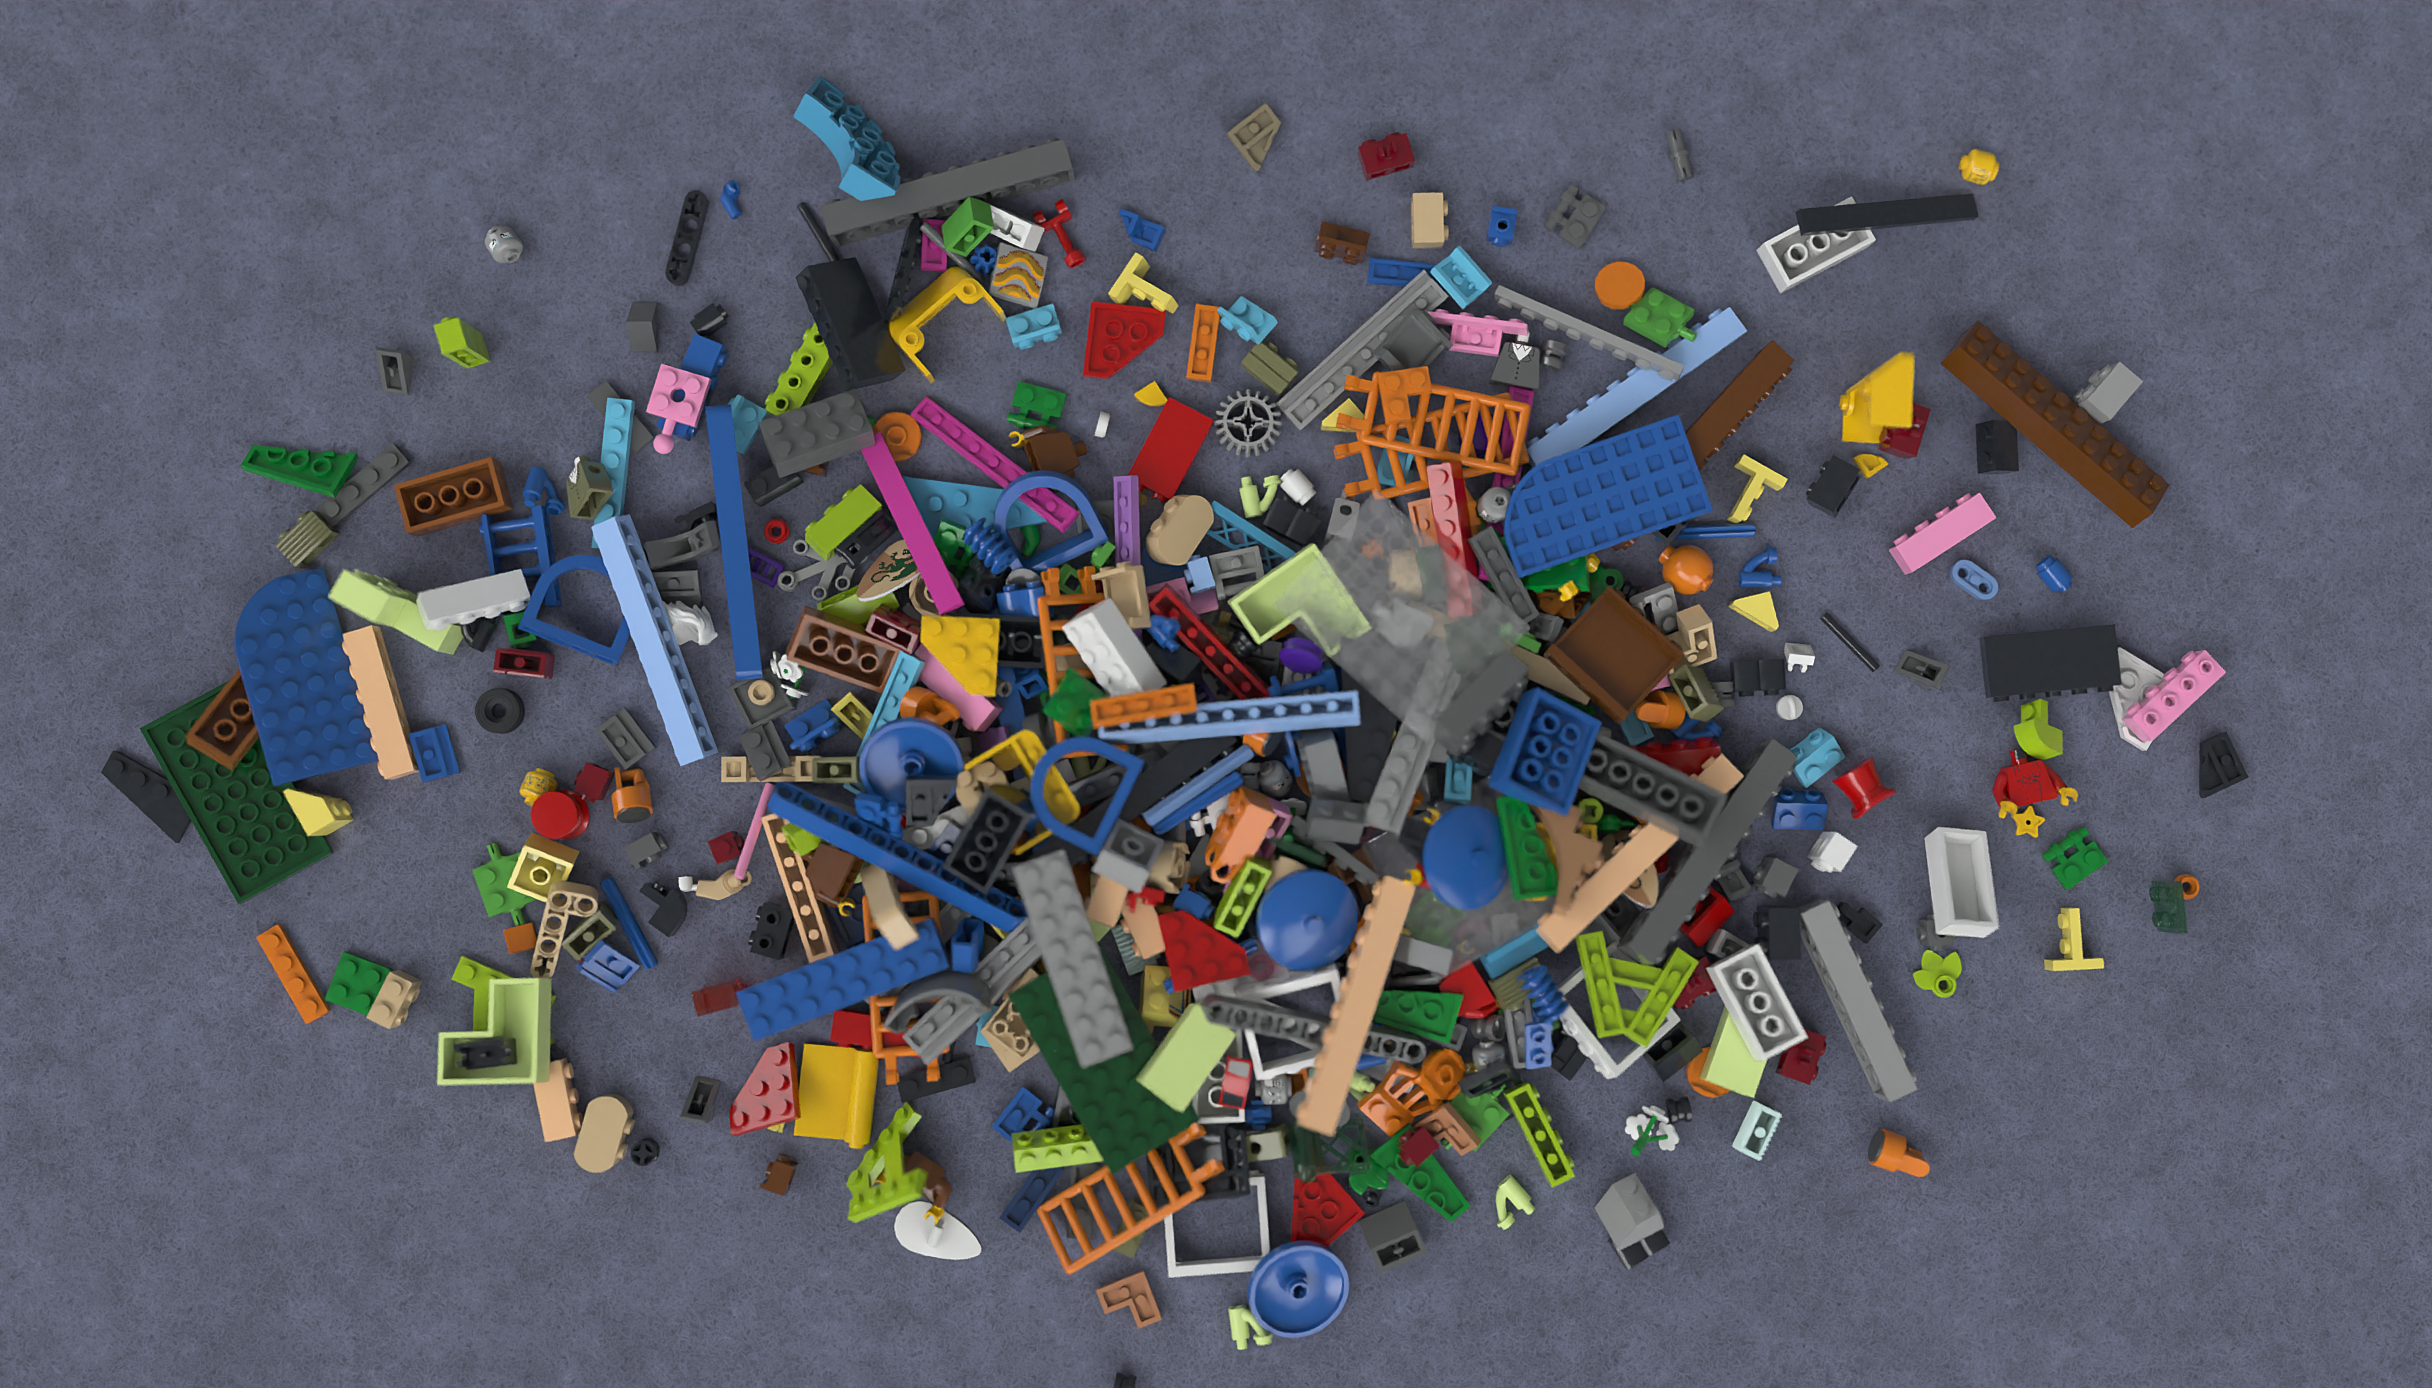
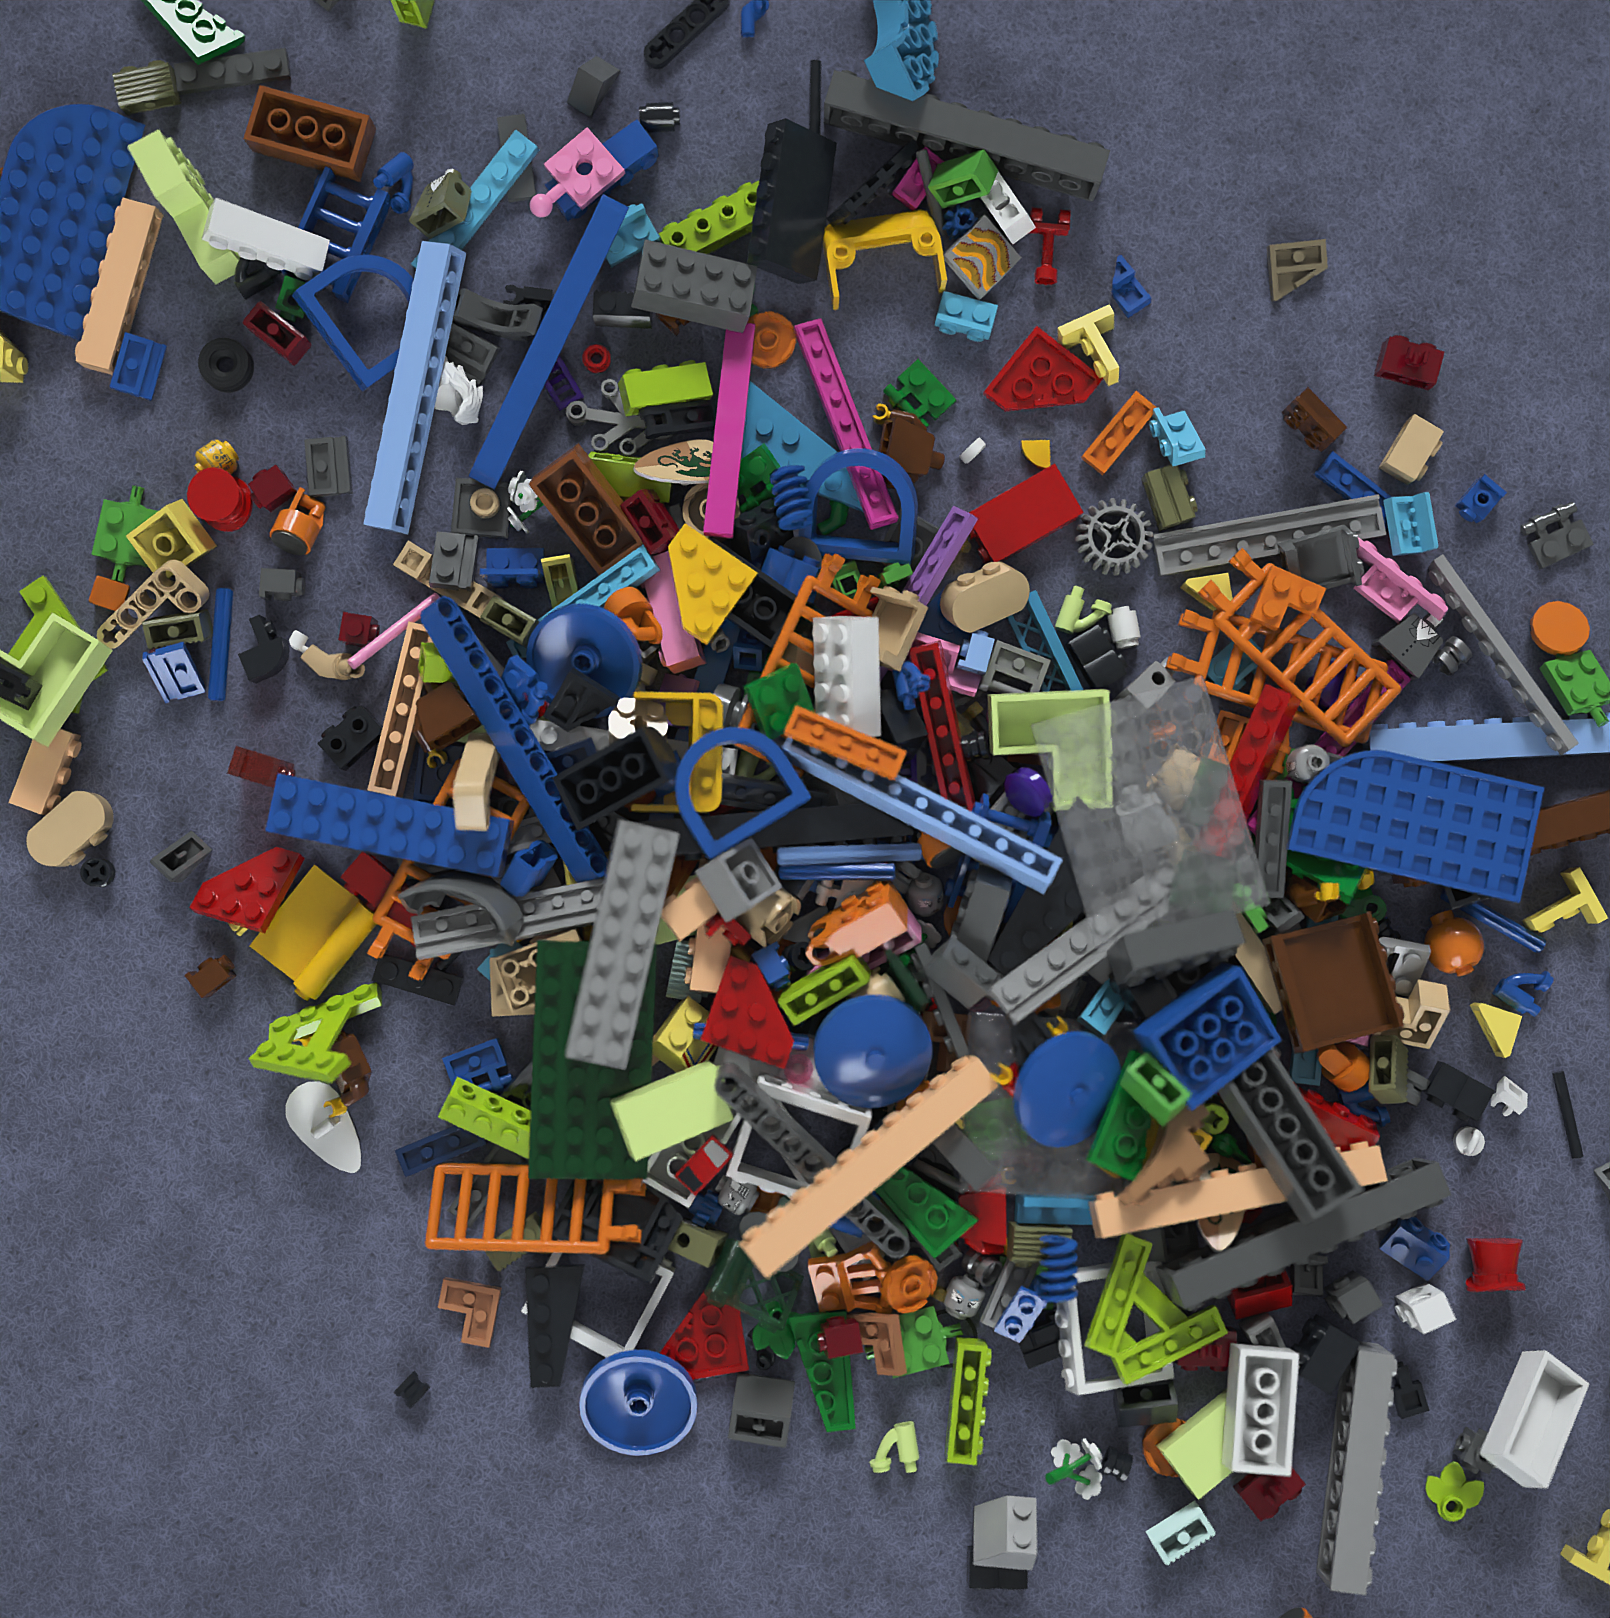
camera: 30 degrees right, 0 degrees up
(1191, 1264) = (551, 1309): none -> black wing
(1239, 1320) = (558, 1405): yellowish green plant -> none
(1488, 1079) = (950, 1317): black wing -> none
(1530, 817) = (1155, 1089): none -> bright green brick
(1816, 756) = (1469, 1205): medium azure bracket -> none

